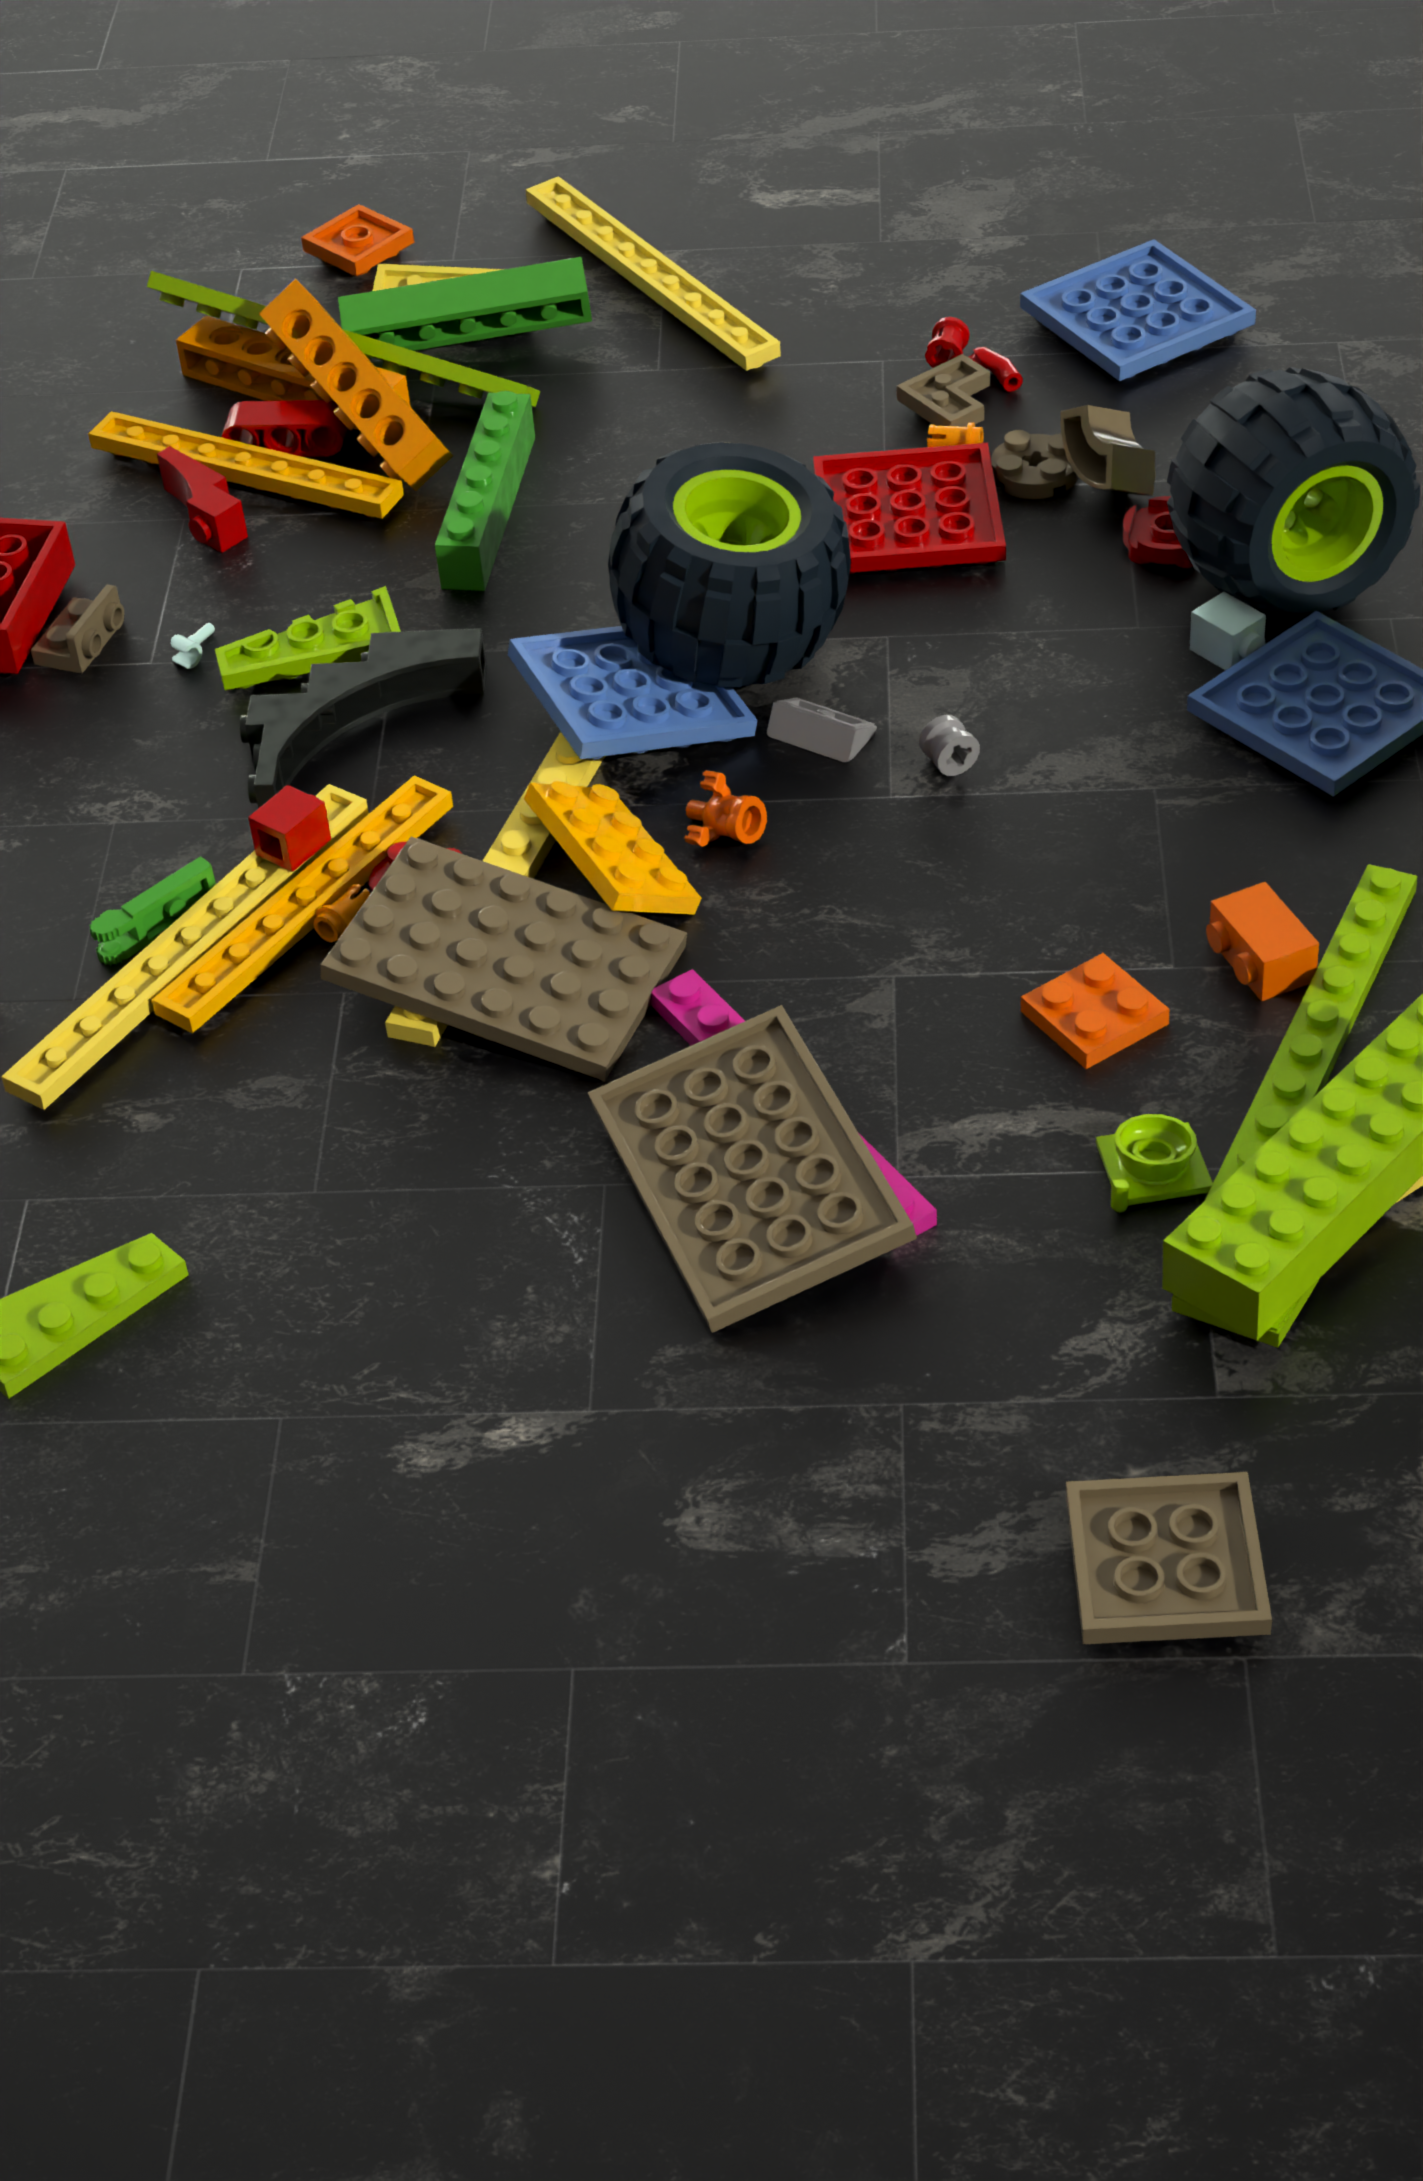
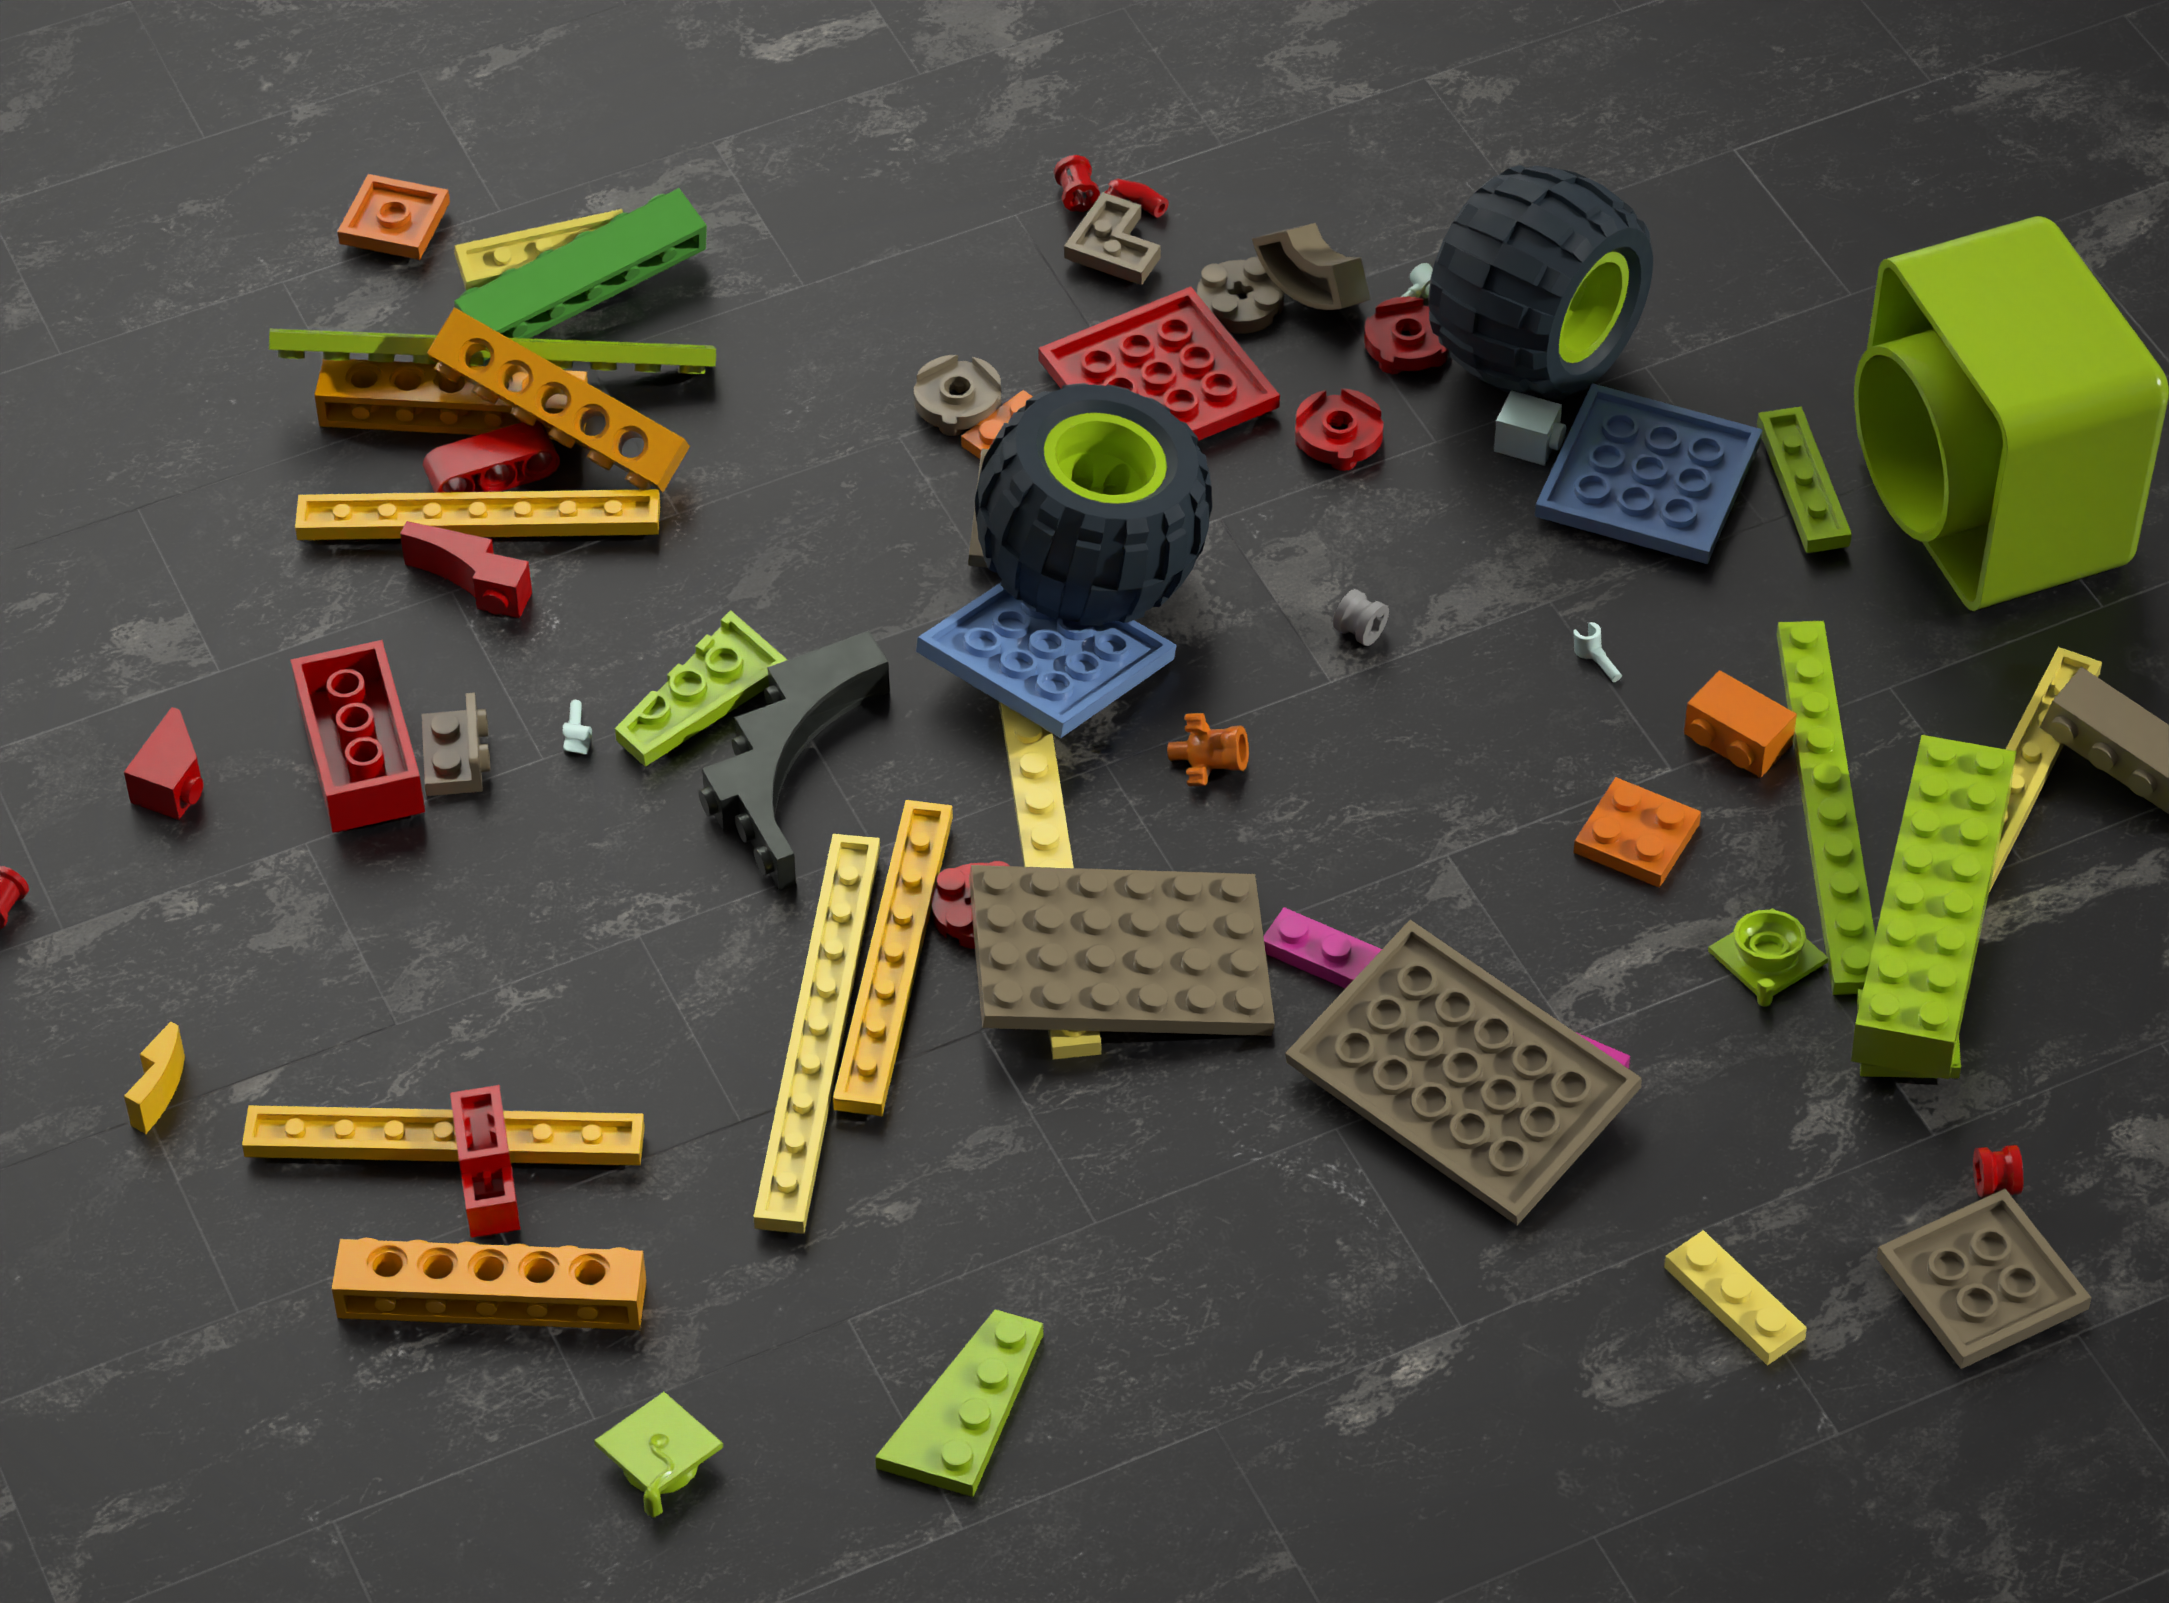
camera: 30 degrees left, 5 degrees up
(150, 913) = (765, 1014): bright green hinge -> none
(289, 828) = (847, 892): red brick -> none
(334, 918) = (935, 964): light orange pin -> none
(485, 492) = (751, 476): bright green brick -> none
(612, 848) = (1139, 814): yellow plate -> none
(654, 274) = (726, 174): light yellow plate -> none
(819, 729) = (1227, 634): light grey slope -> none
(886, 1483) = (1735, 1297): none -> light yellow plate
(954, 435) = (1153, 287): light orange pin -> none
(1066, 590) = (1335, 446): none -> red plate
(1137, 309) = (1227, 93): medium blue plate -> none
(1165, 835) = (1590, 647): none -> light aqua hand
(1254, 1451) = (1998, 1170): none -> red wheel

